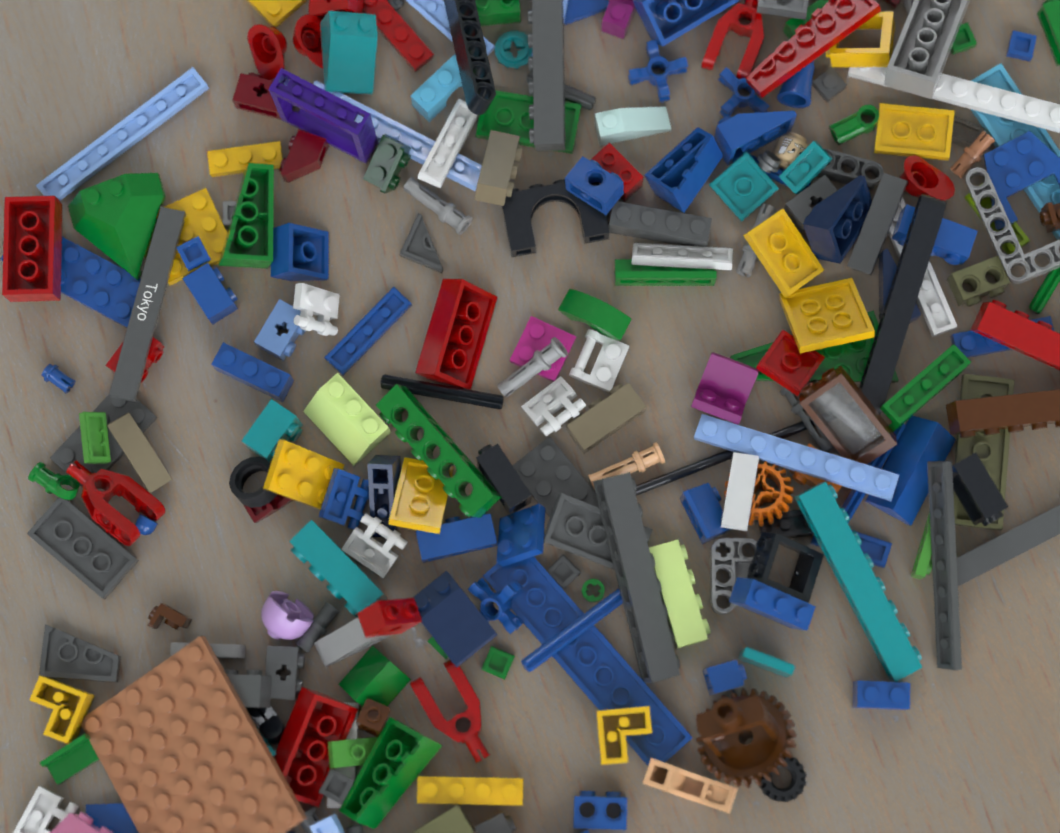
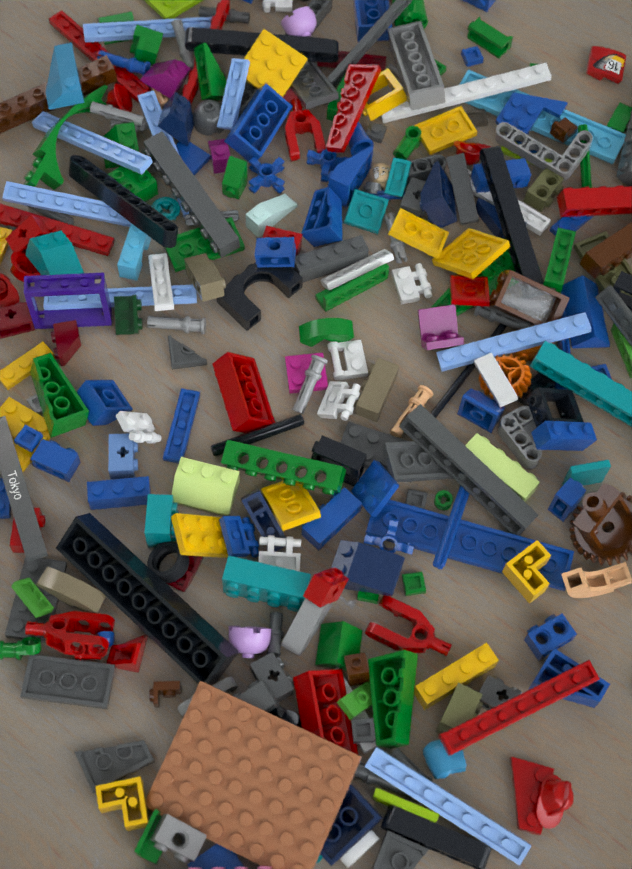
camera: 40 degrees left, 15 degrees down
(83, 761) = (191, 838): none -> light grey brick
(159, 554) = (128, 654): none -> red slope
(205, 511) = (146, 600): none -> black brick
(614, 57) = (234, 178): none -> green slope
(728, 307) = (406, 286): none -> white plate
(972, 154) = (488, 124): nougat pin -> none

